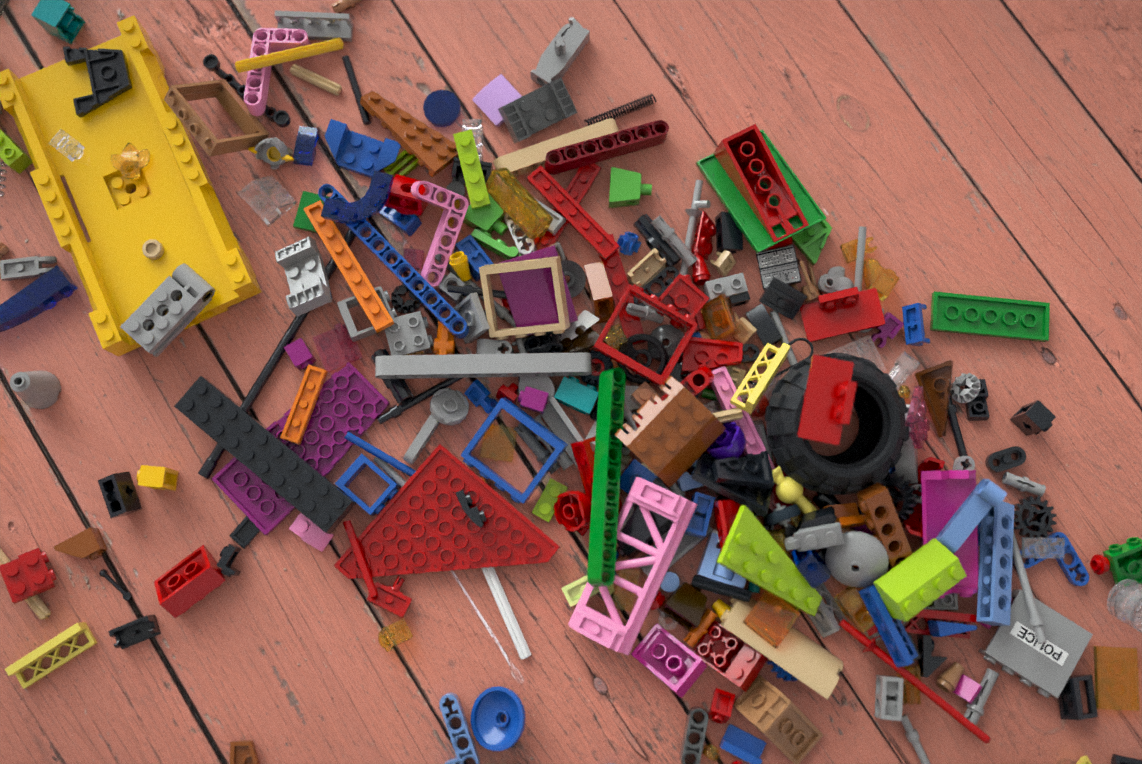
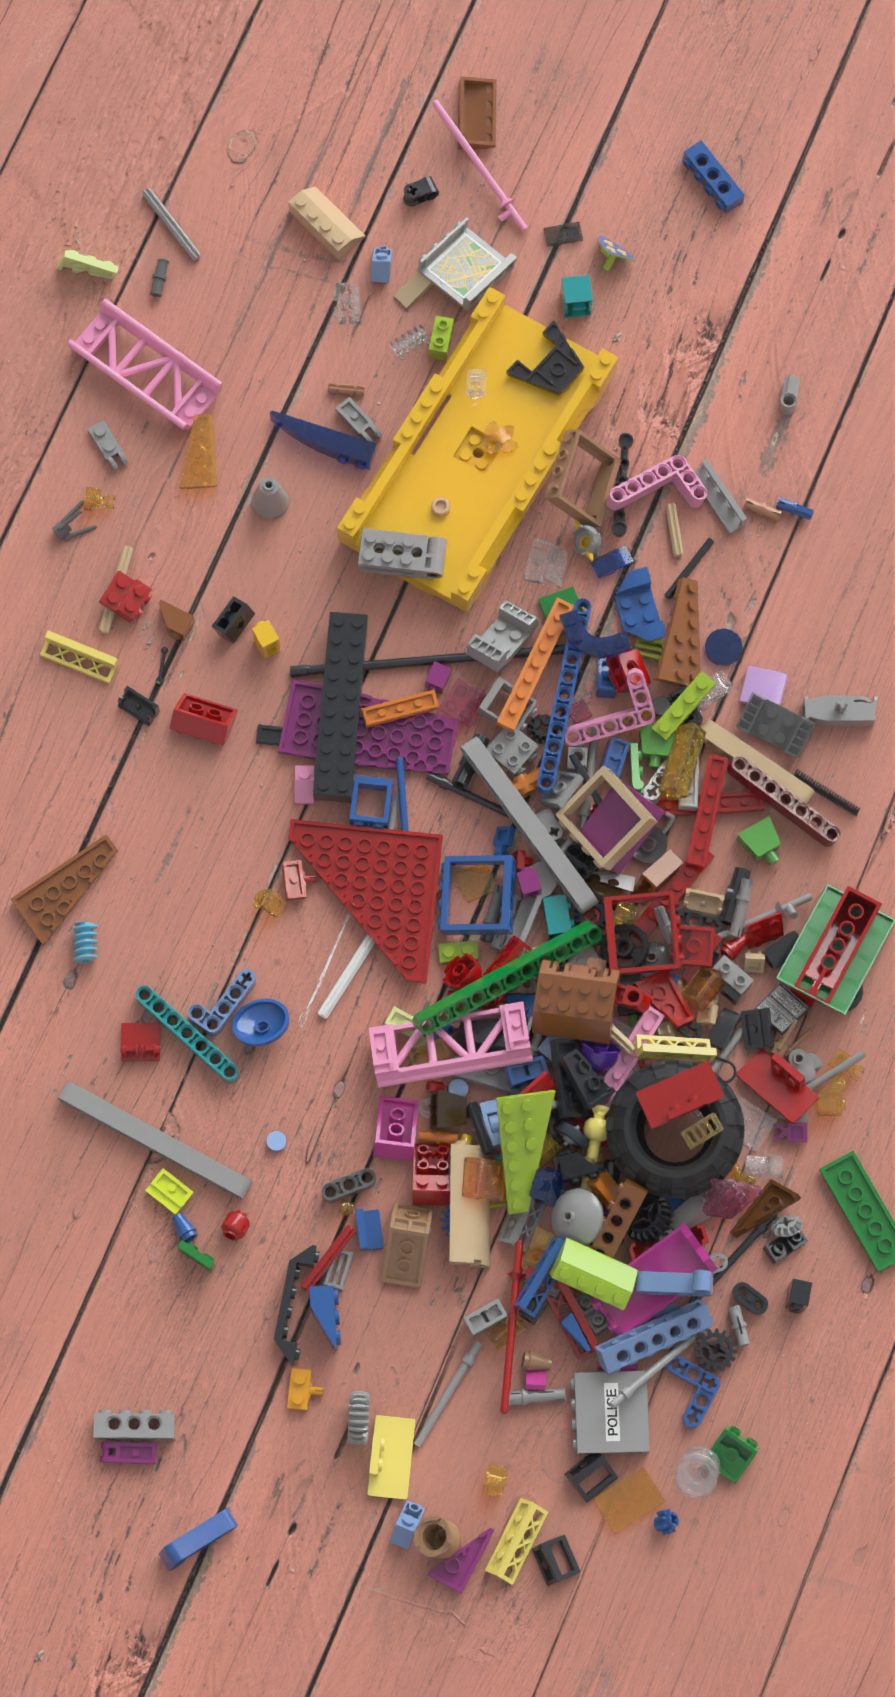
camera: 55 degrees right, 5 degrees down
(227, 558) = (242, 734): black bracket -> none
(288, 55) = (677, 497): yellow axle -> none
(360, 558) = (310, 835): red bar -> none
(421, 440) = (438, 818): light grey beam -> none
(449, 406) = (477, 822): light grey tile -> none
(460, 264) = (598, 751): yellow cone -> none
(474, 514) = (406, 896): black slope -> none
(628, 243) = (714, 874): blue gear -> none
(721, 706) = (387, 1192): red bracket -> none
(812, 240) = (828, 1022): bright green wing -> none
(816, 537) = (570, 1170): light grey hinge -> none
(877, 409) = (687, 1139): none -> clear yellow slope
(914, 324) = (811, 1151): blue hinge -> none
(927, 662) = (535, 1334): black slope -> none
(1043, 547) = (694, 1369): clear plate -> none
(1099, 564) = (714, 1428): red plate -> none

